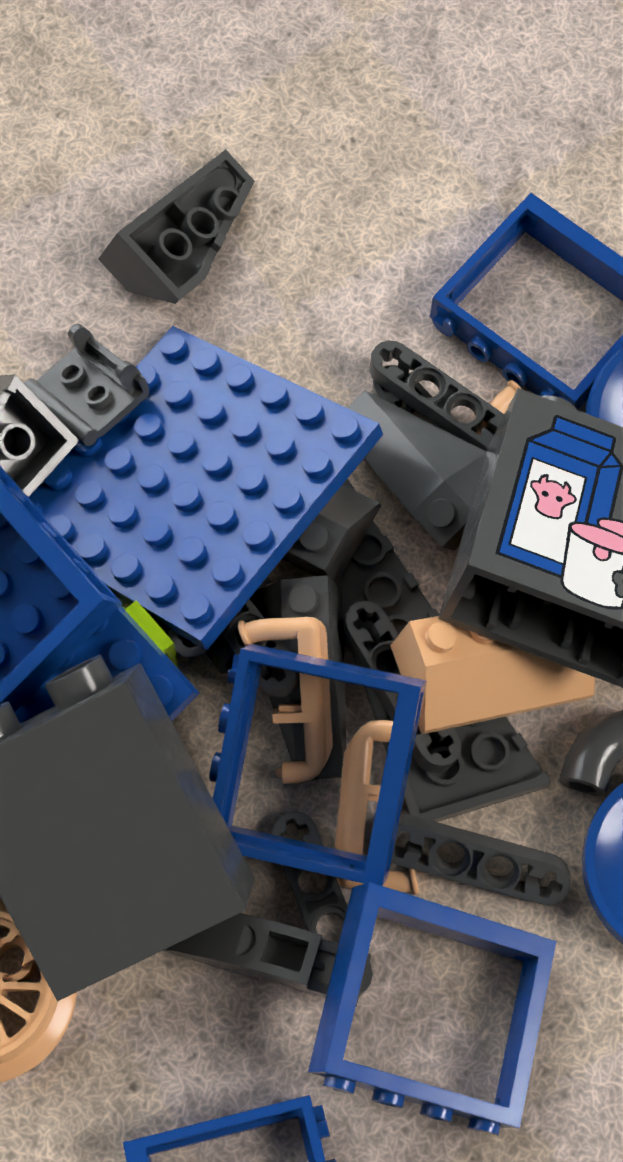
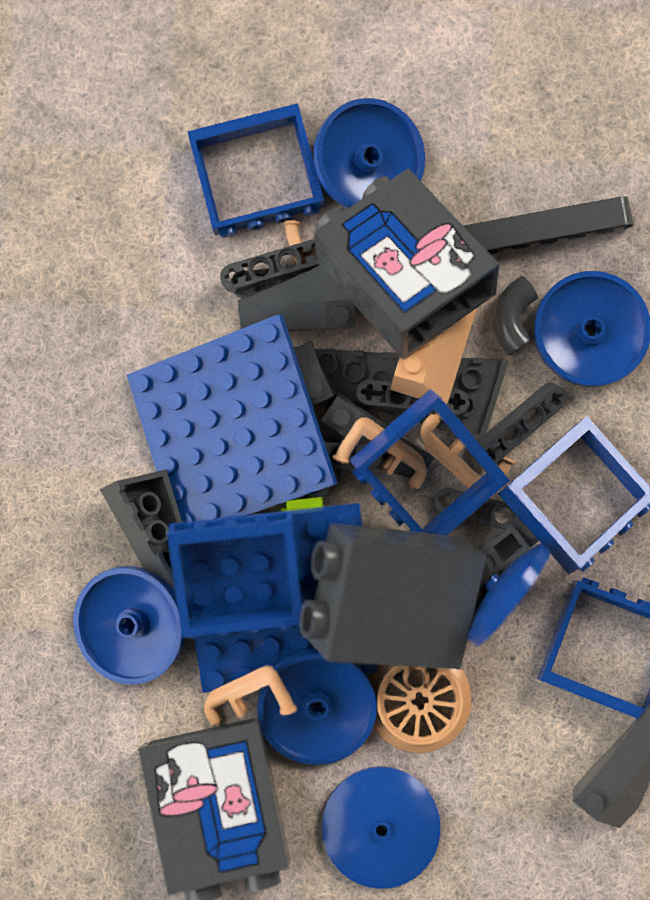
camera: 50 degrees left, 15 degrees up
(90, 387) = (135, 445): dark grey piece -> none
(177, 238) = (77, 339): dark grey wedge -> none
(212, 987) = (506, 592): none -> blue dish

